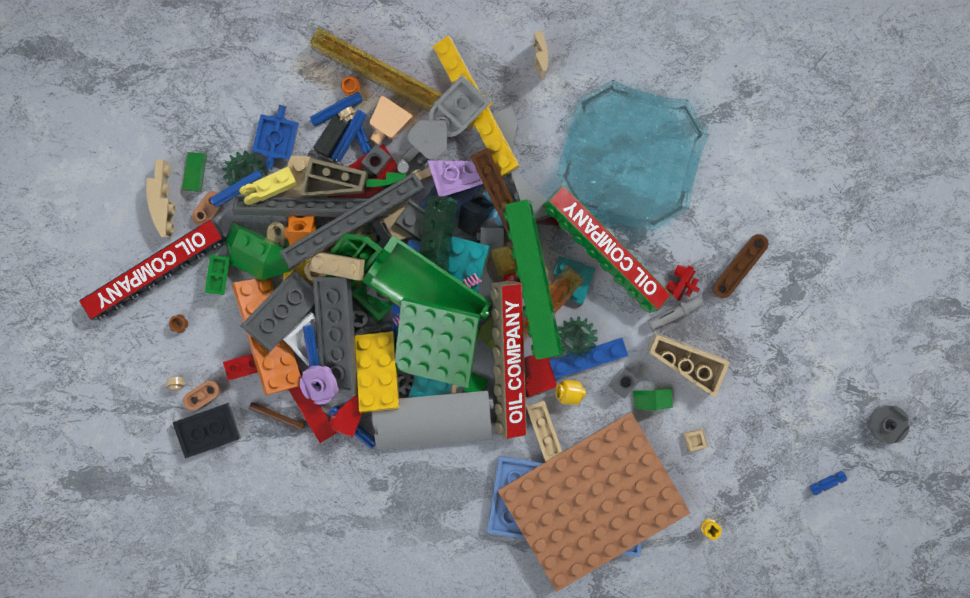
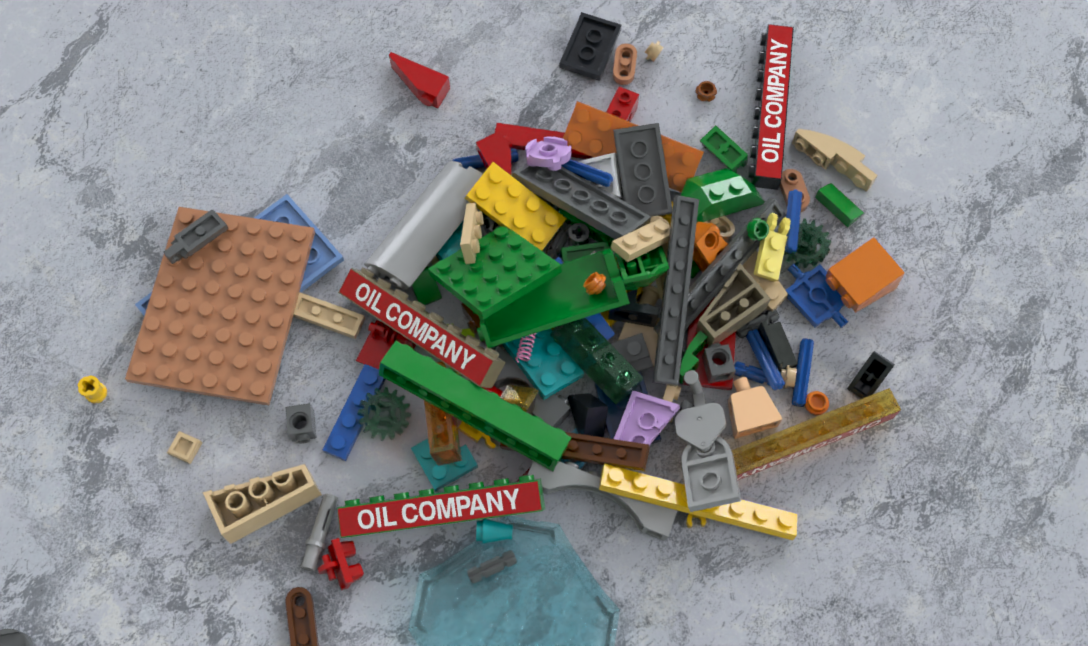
camera: 130 degrees right, 20 degrees down
(241, 114) = (864, 275): none -> orange slope
(265, 202) = (762, 229): none -> green plate
(276, 416) = (552, 108): reddish brown bar -> none
(307, 65) = (870, 375): none -> black slope
(330, 516) = (425, 83): none -> red slope
(395, 269) = (595, 283): none -> orange plate
(422, 379) = (471, 233): none -> tan plate
(541, 55) = (691, 608): tan slope -> none
(569, 556) = (195, 236): none -> dark grey hinge
(570, 392) = (339, 366): yellow head -> none
(595, 207) = (493, 531): none -> teal cone
(614, 192) = (491, 566): none -> dark grey axle
(653, 399) = (259, 439): green slope -> none
(828, 483) = (17, 542): blue axle -> none

